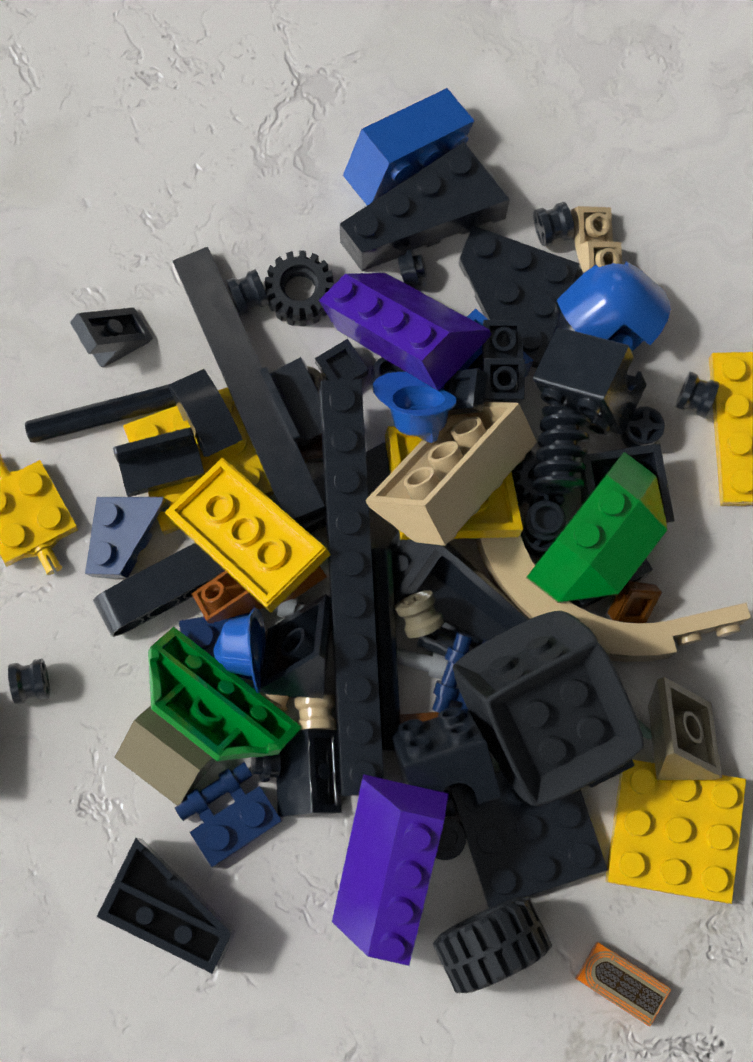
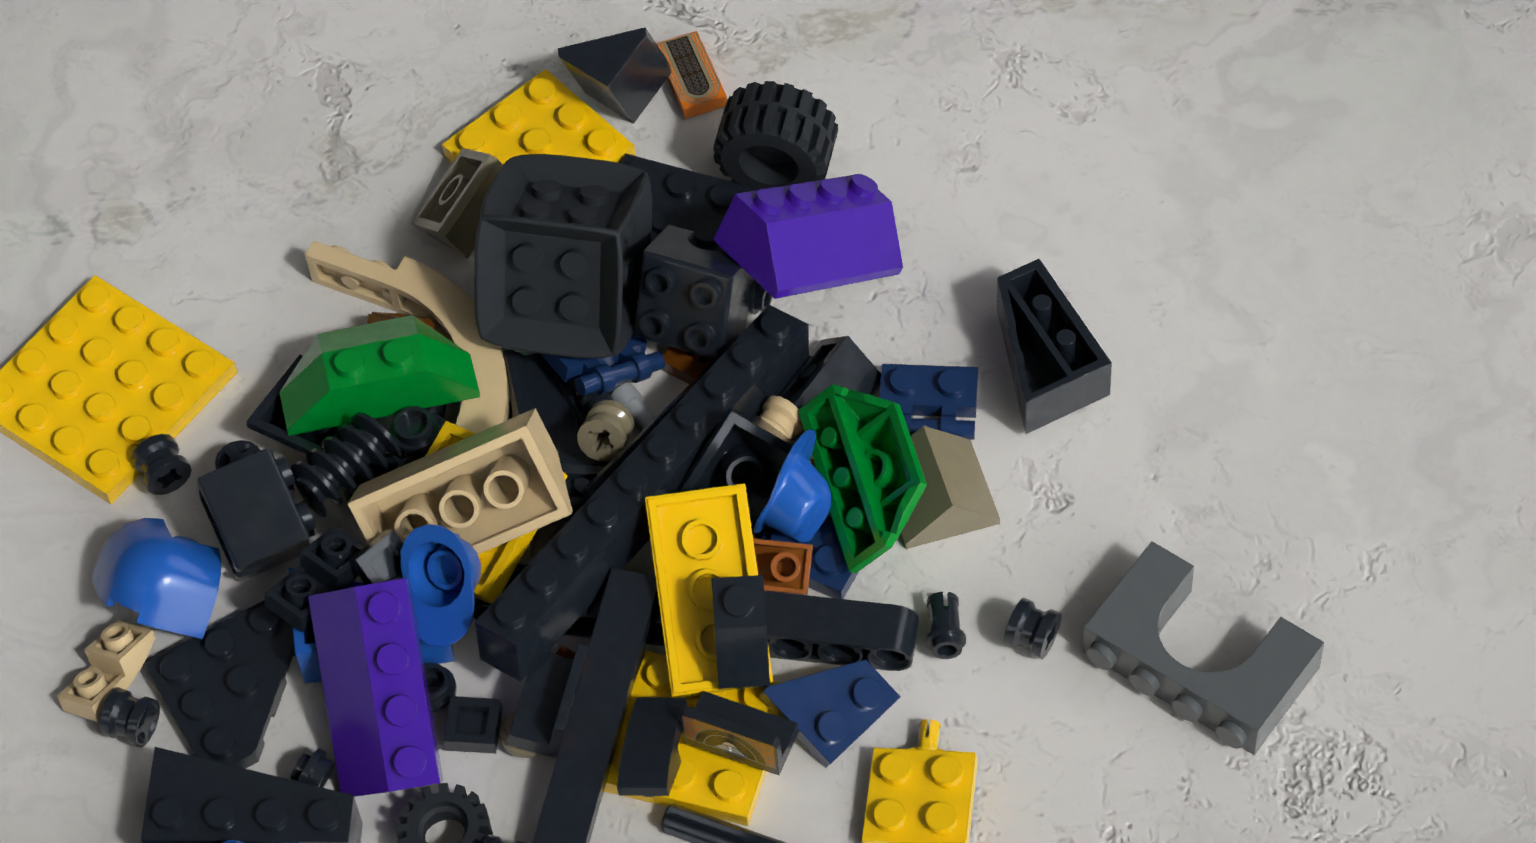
camera: 135 degrees left, 20 degrees down
(91, 644) = (945, 634): none -> black pin
(201, 516) = (741, 632): none -> black slope
(661, 917) = (619, 70): none -> black slope

